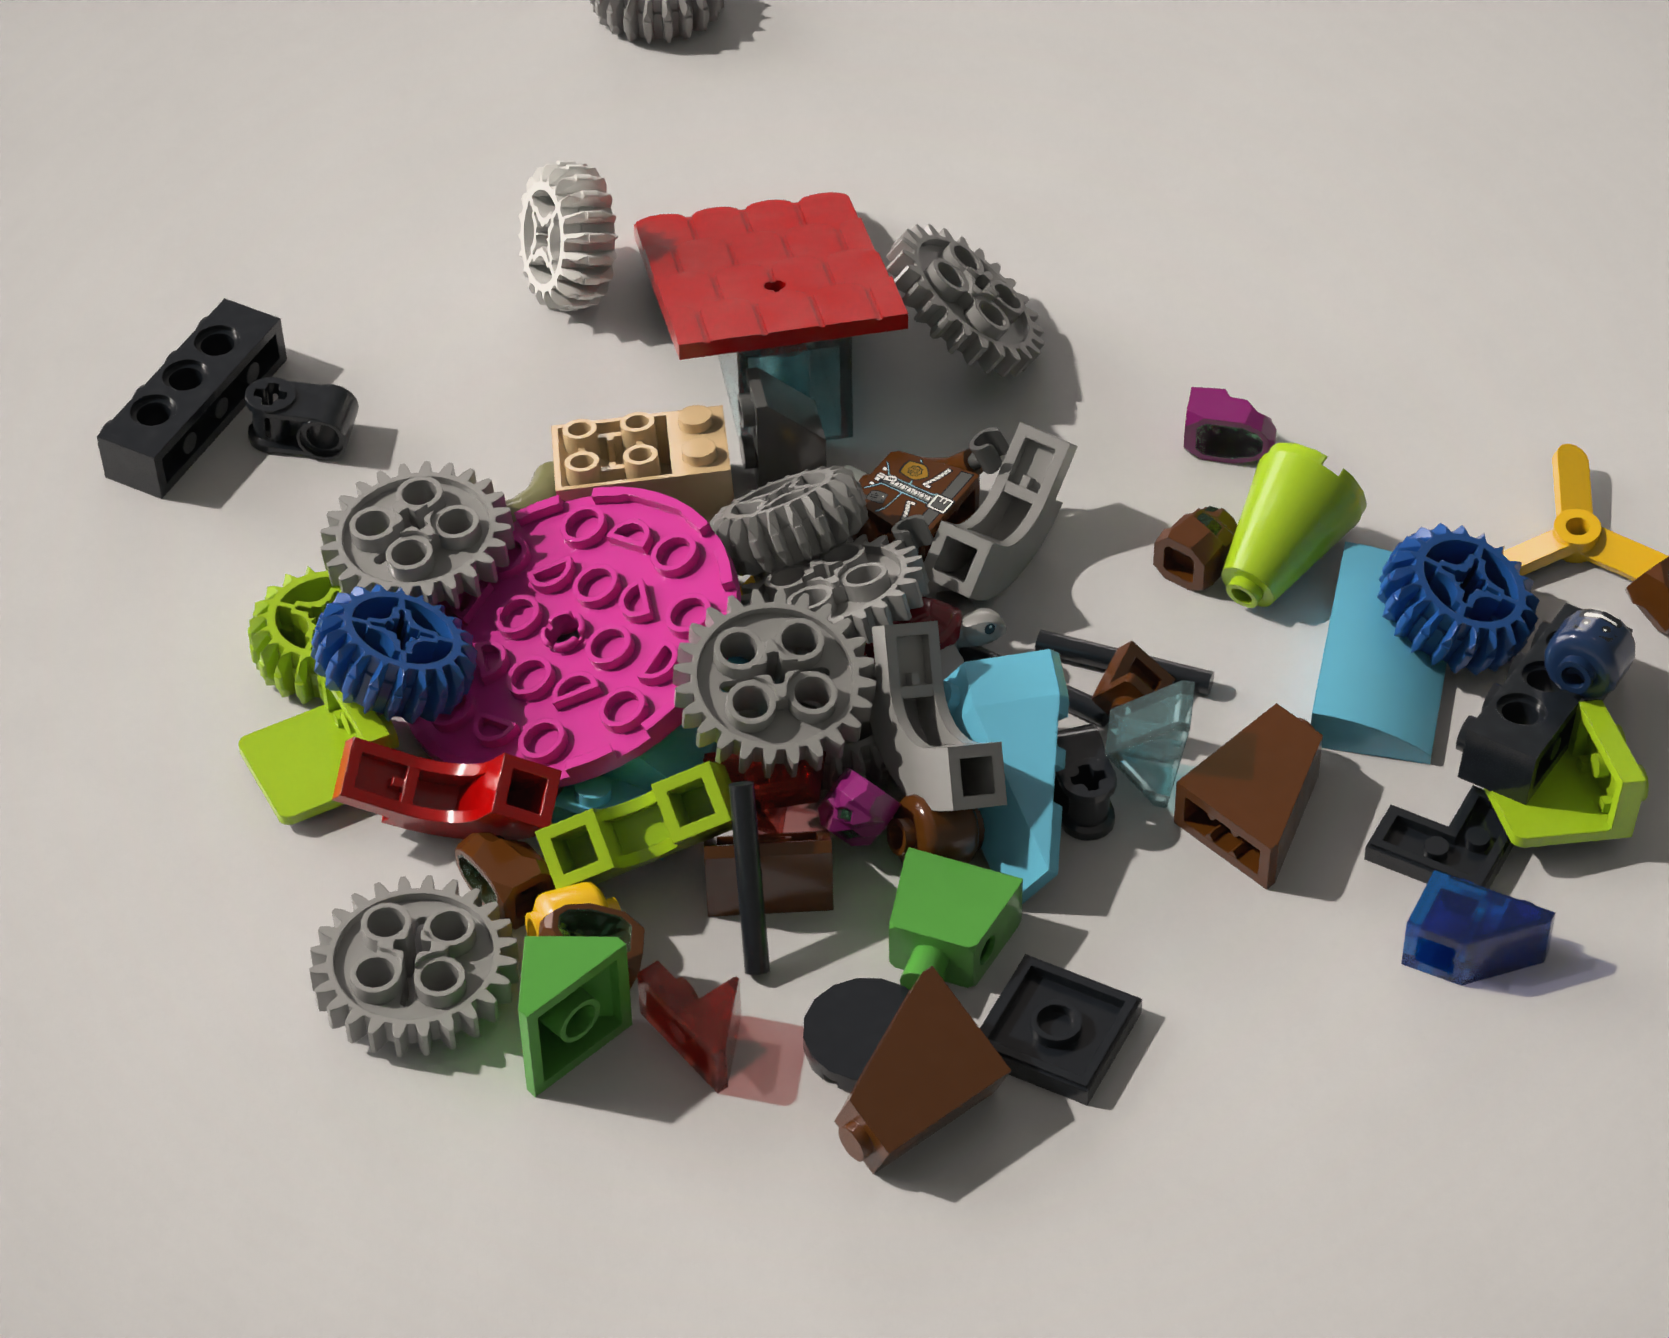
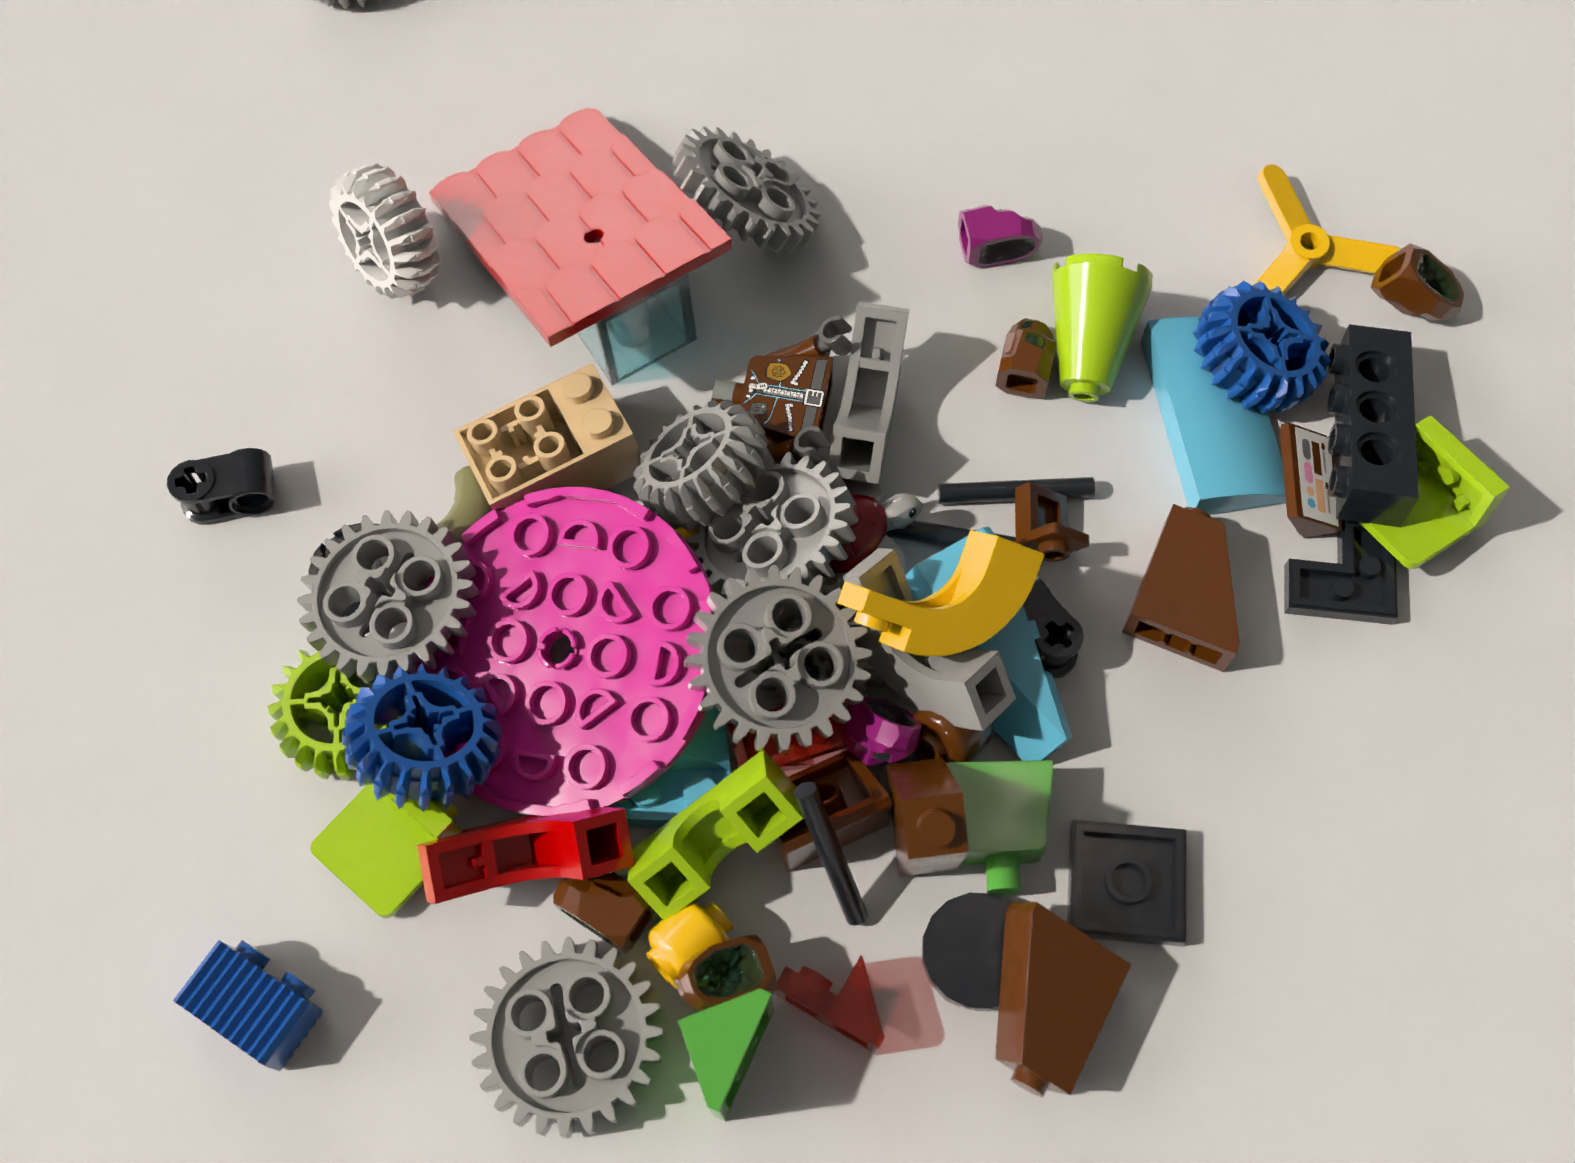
camera: 20 degrees left, 20 degrees up
(122, 843) = (250, 1004): none -> blue brick
(191, 398) = (114, 569): black brick -> none
(781, 428) = (647, 368): dark grey slope -> none
(856, 880) = (927, 817): none -> reddish brown slope
(1018, 684) = (967, 611): none -> yellow arch
(1150, 738) = (1097, 575): clear light blue slope -> none
(1431, 745) = (1306, 481): none -> slope
(1473, 932) = (1407, 665): clear blue slope -> none
(1591, 649) = (1414, 377): dark blue head -> none

